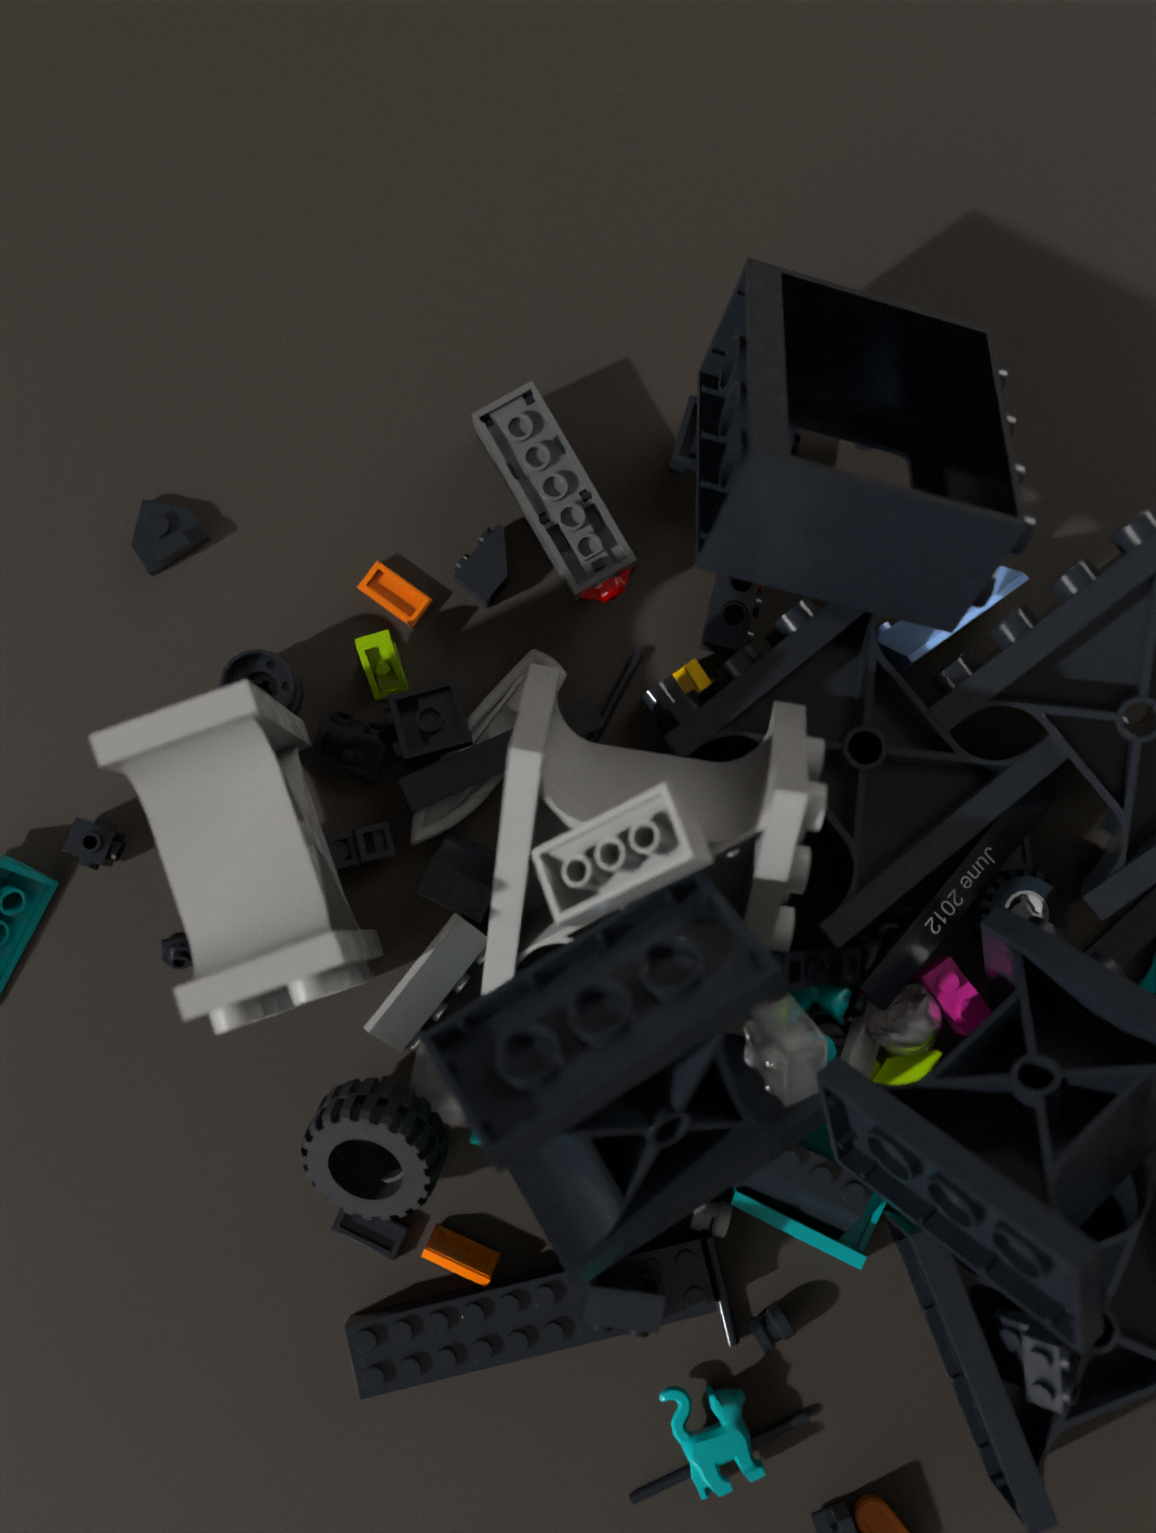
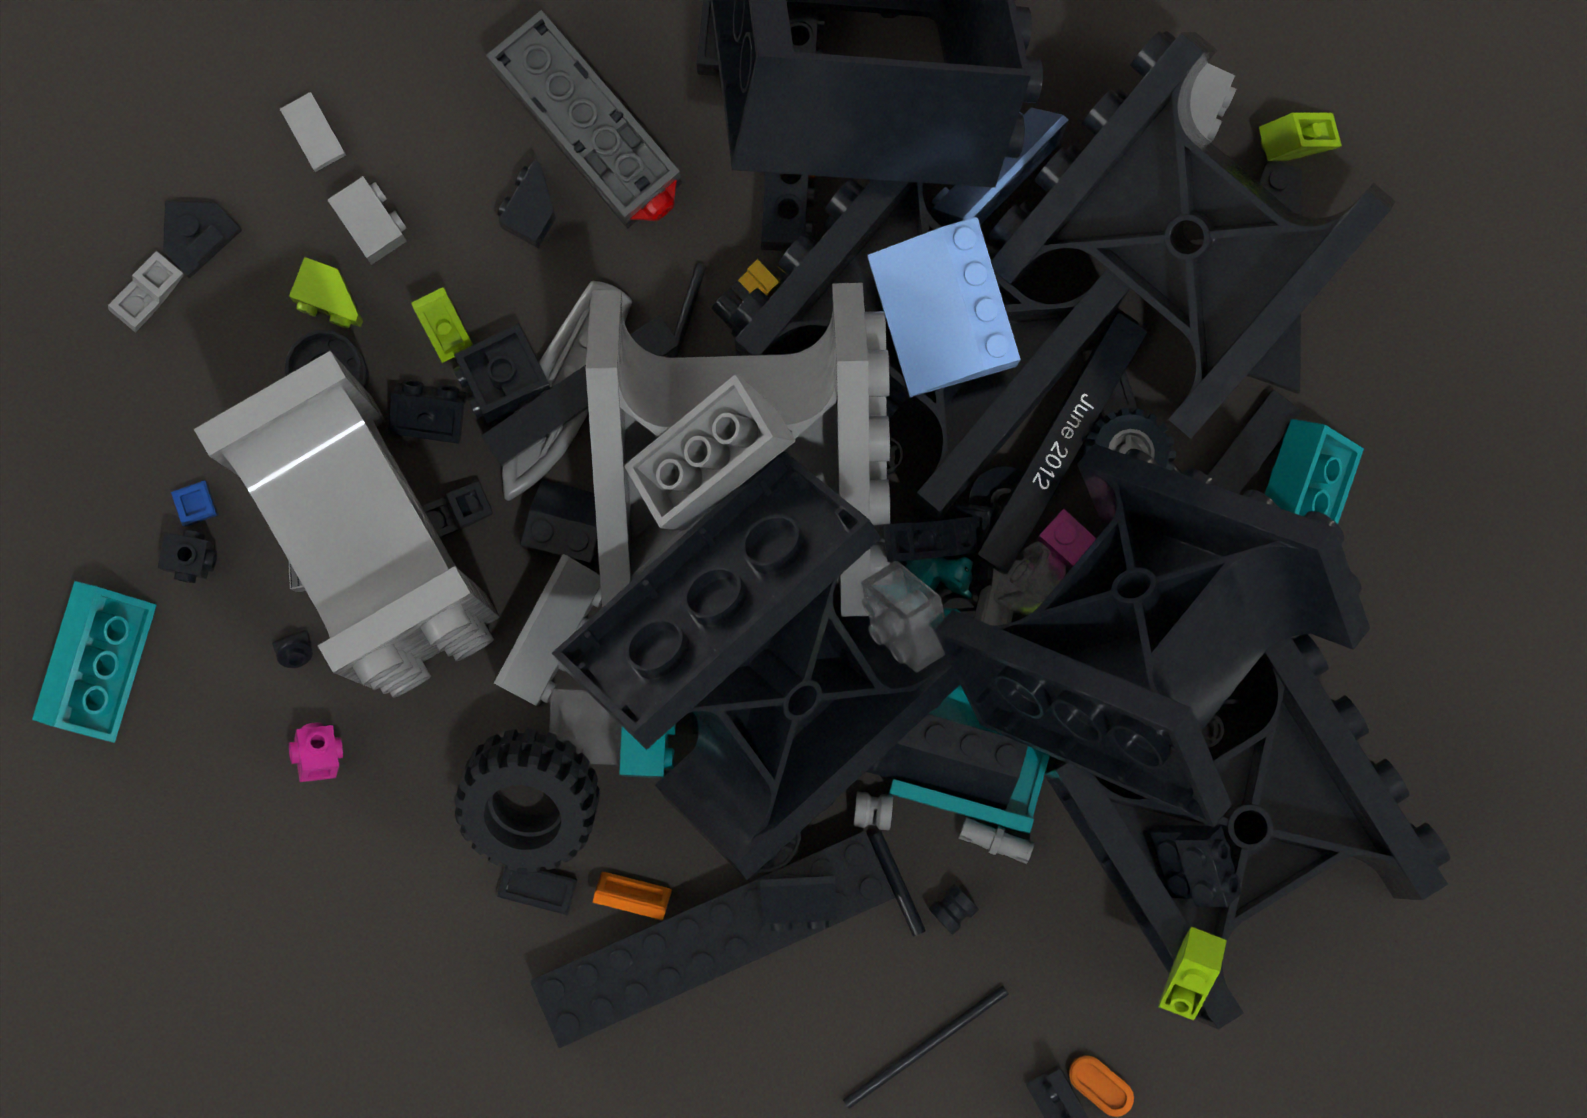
camera: 10 degrees left, 0 degrees up
(108, 582) = (146, 291): none -> light grey slope
(113, 792) = (194, 503): none -> blue tile
(176, 1068) = (316, 752): none -> dark pink brick
(278, 612) = (324, 291): none -> lime slope
(294, 459) = (312, 132): none -> light grey tile
(329, 551) = (367, 219): none -> light grey brick
(395, 594) = (442, 251): orange tile -> none
(717, 1443) = (918, 1030): teal animal -> none
(824, 1267) = (996, 840): none -> light grey pin
(881, 744) = (944, 308): none -> light blue slope
(1018, 1478) = (1193, 973): none -> lime slope

